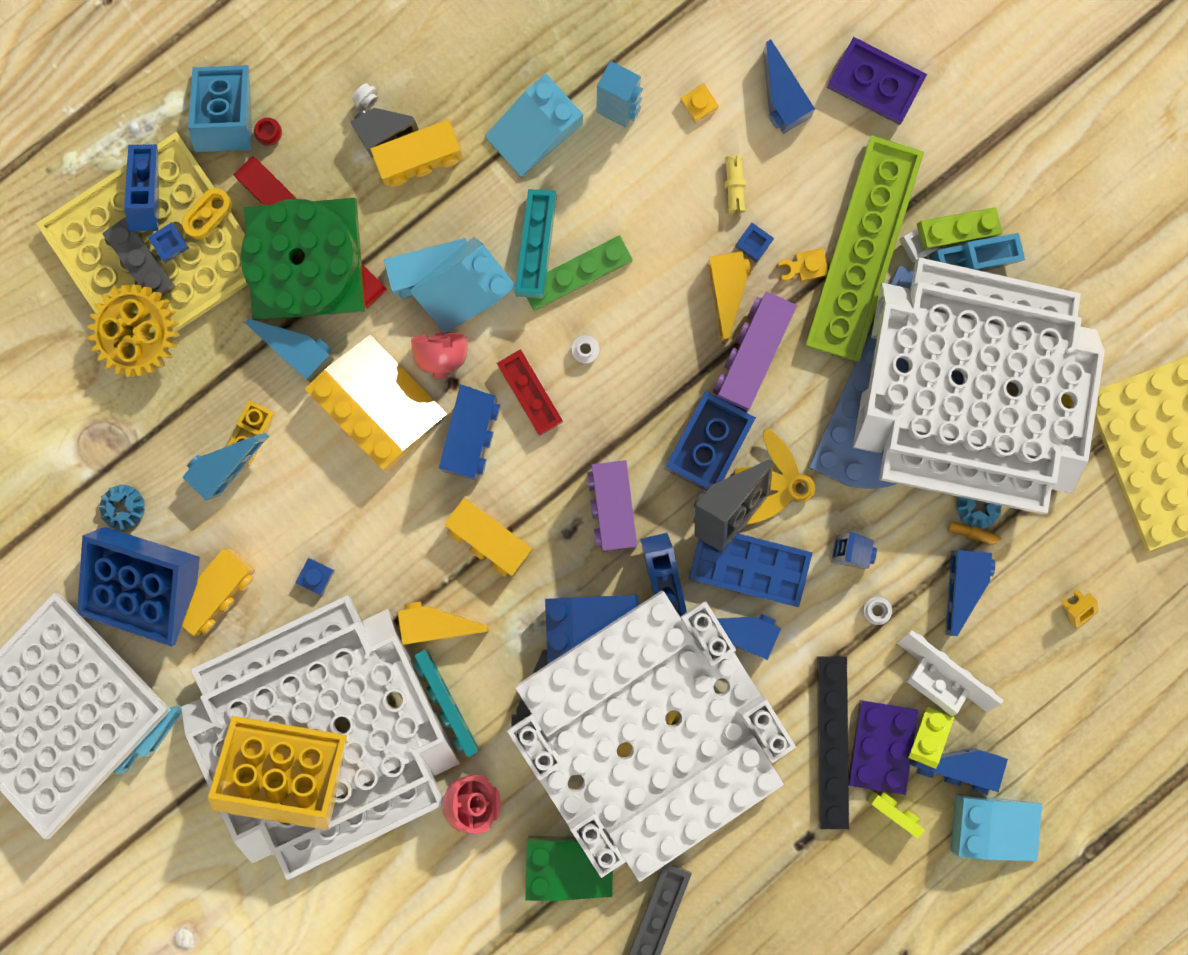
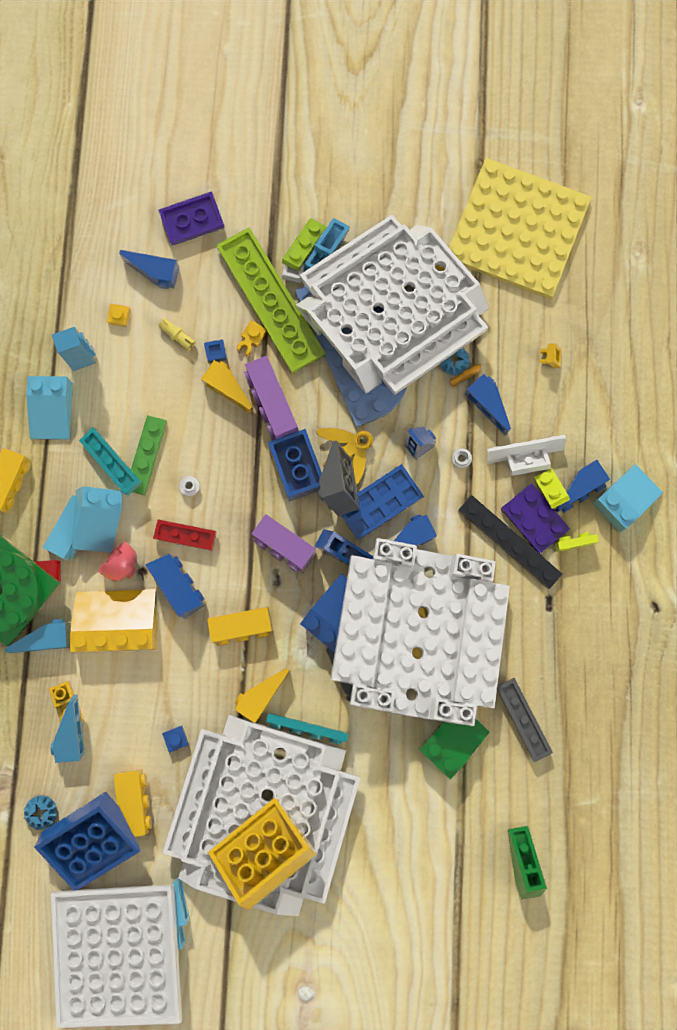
camera: 45 degrees left, 5 degrees down
(471, 804) = (373, 763): coral cylinder -> none

